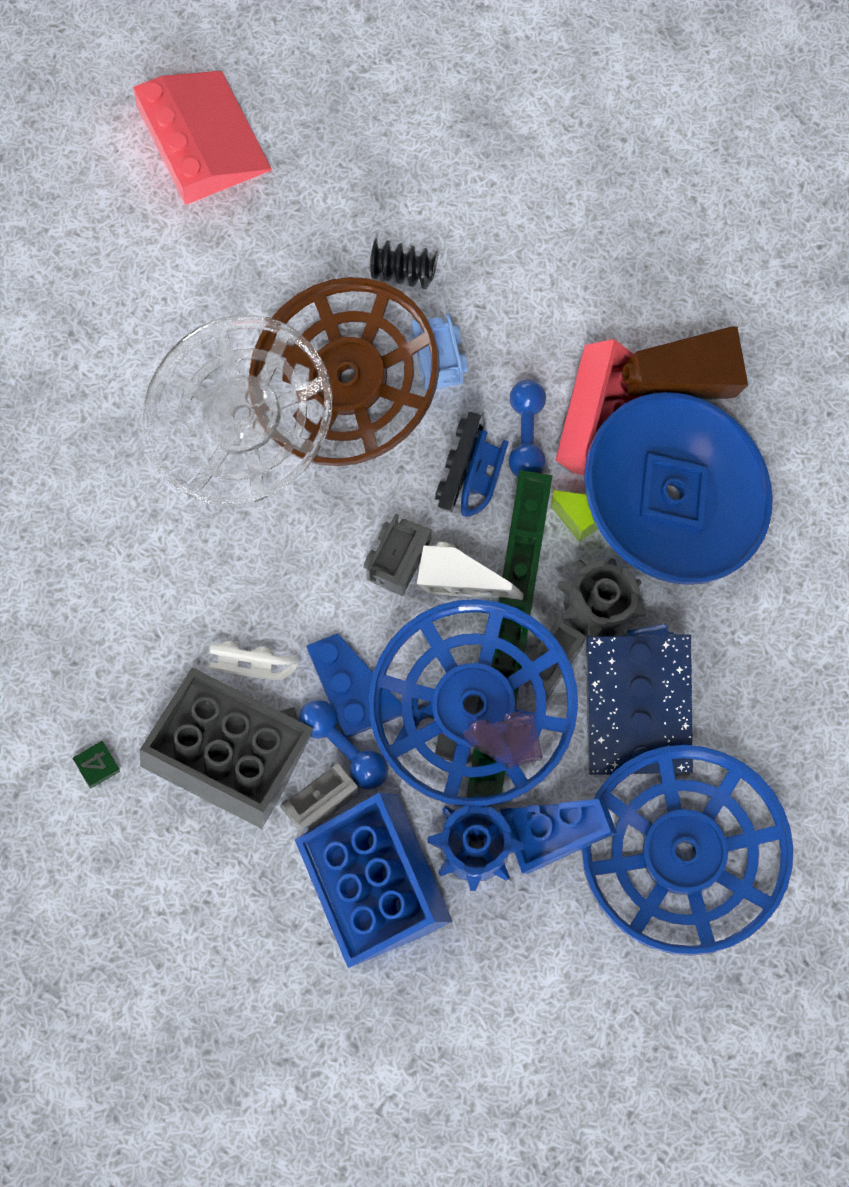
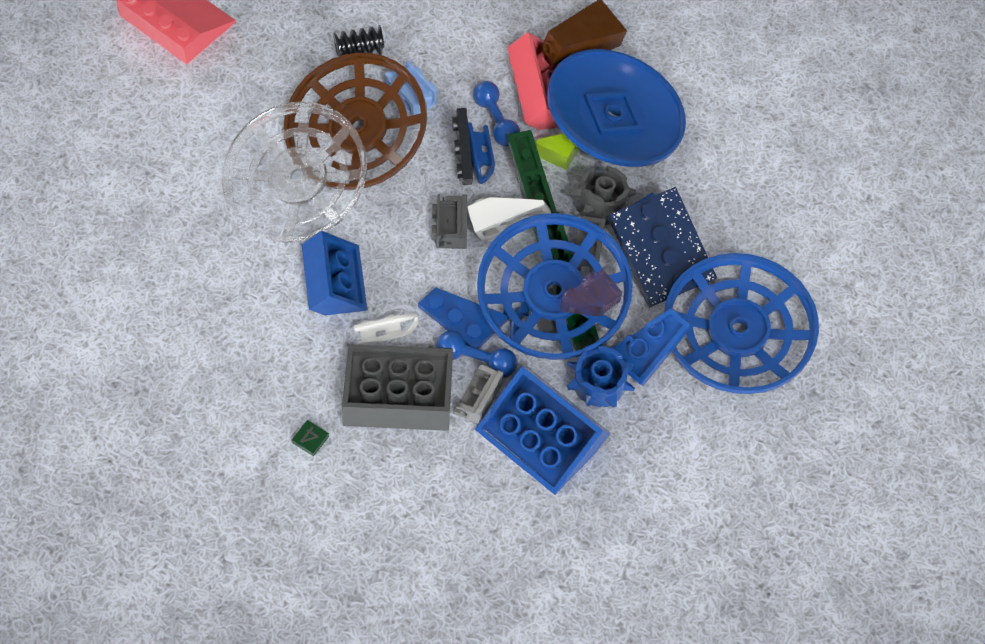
camera: 25 degrees left, 10 degrees down
(222, 566) = (333, 275): none -> blue slope

